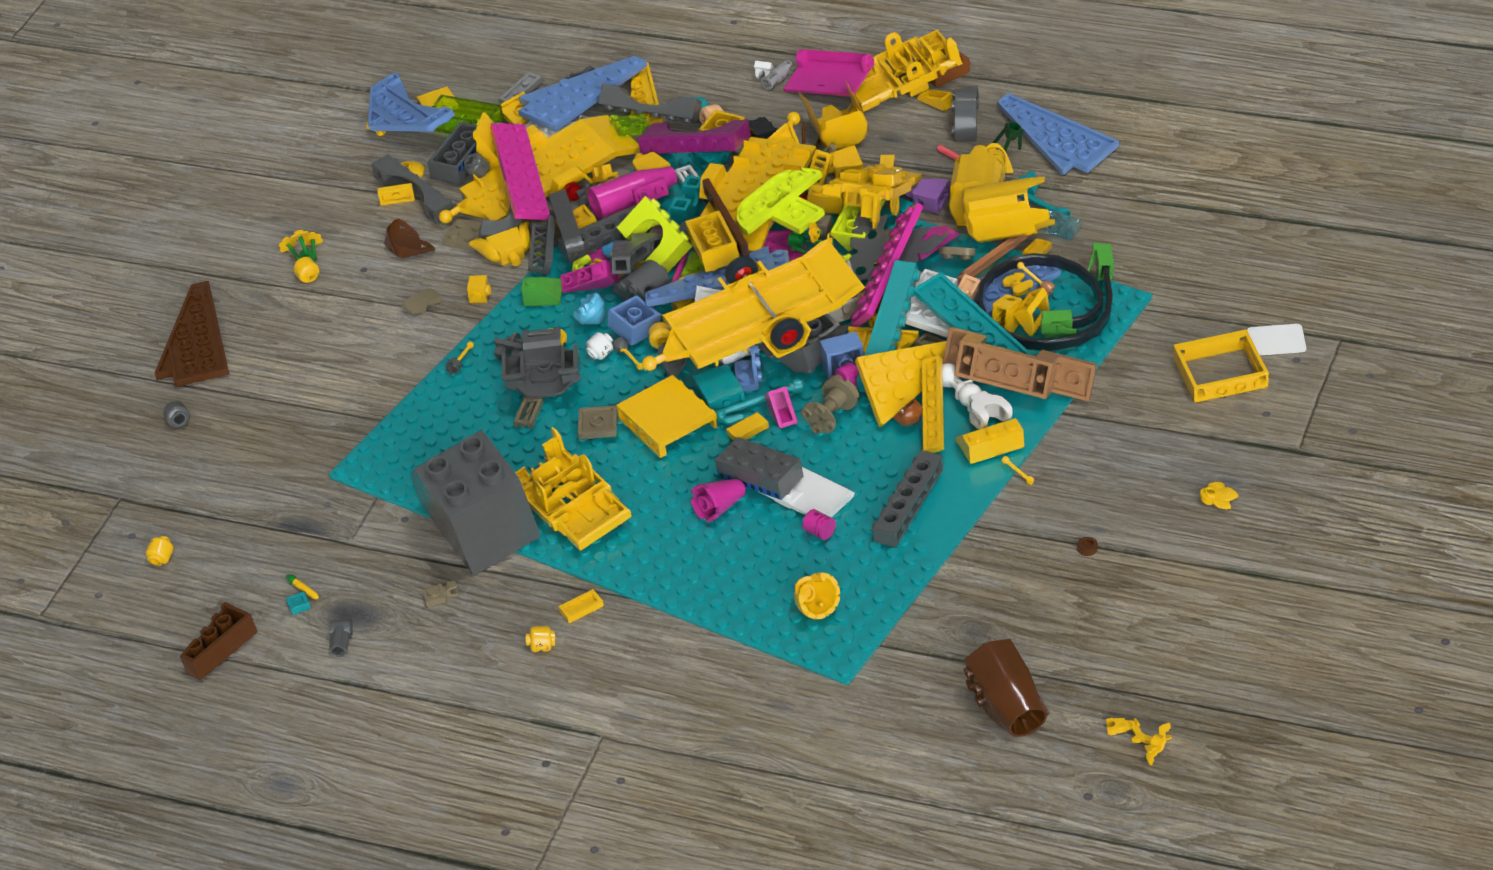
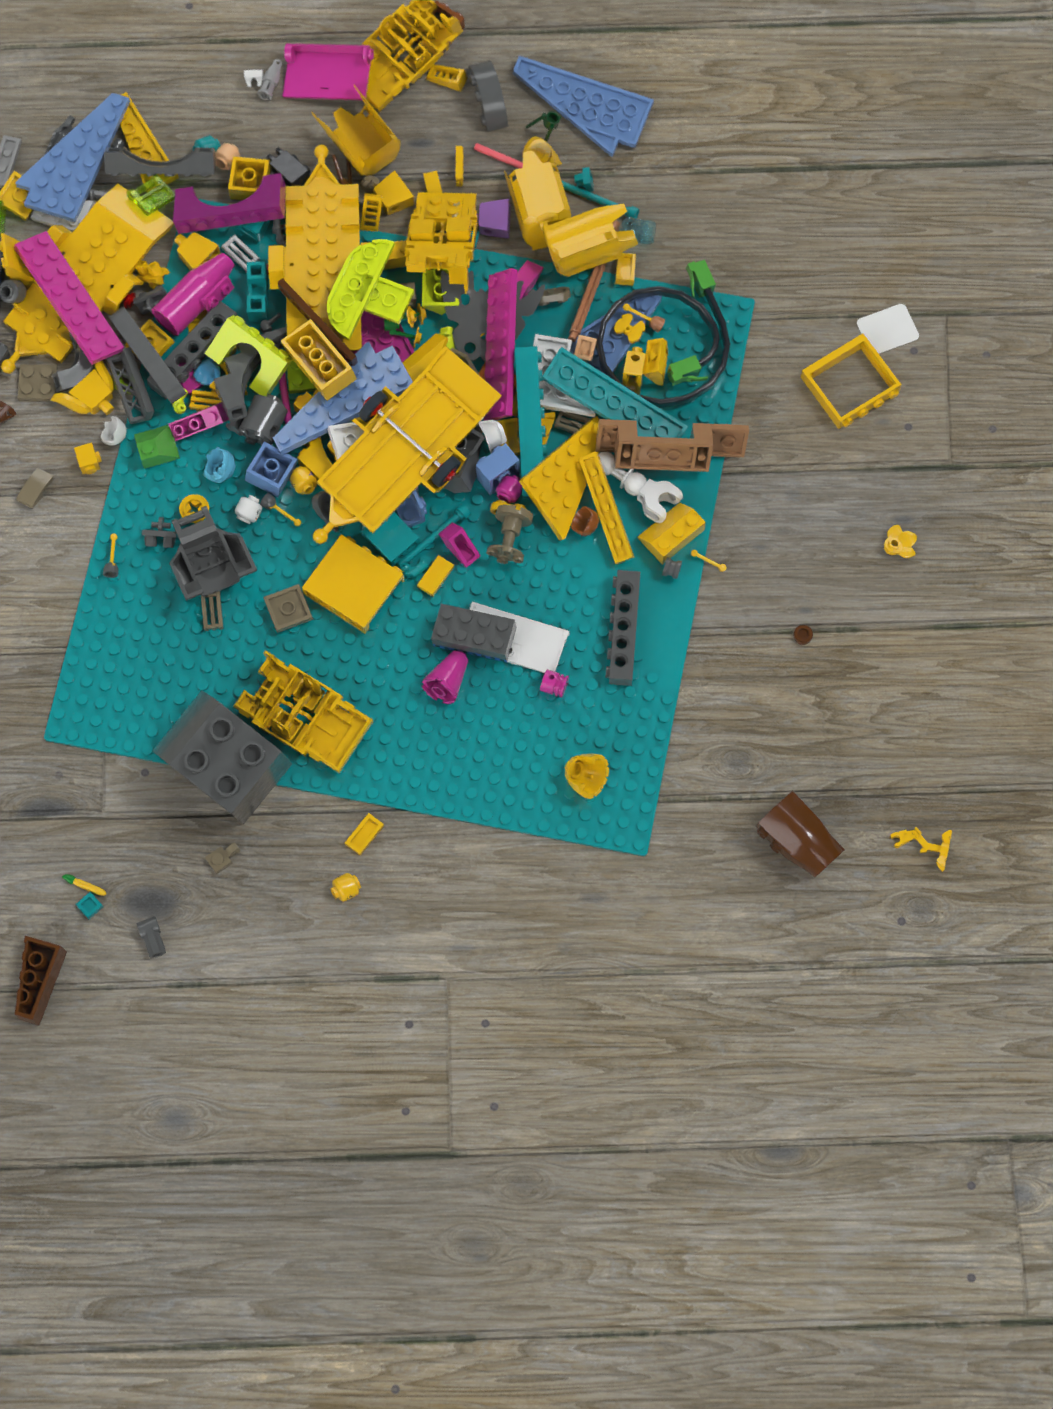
camera: 25 degrees left, 30 degrees up
(512, 276) = (114, 432): none -> white hair
(848, 324) = (494, 433): none -> white piece
(916, 155) = (459, 166): none -> yellow tile
(977, 464) = (672, 568): none -> dark grey wheel

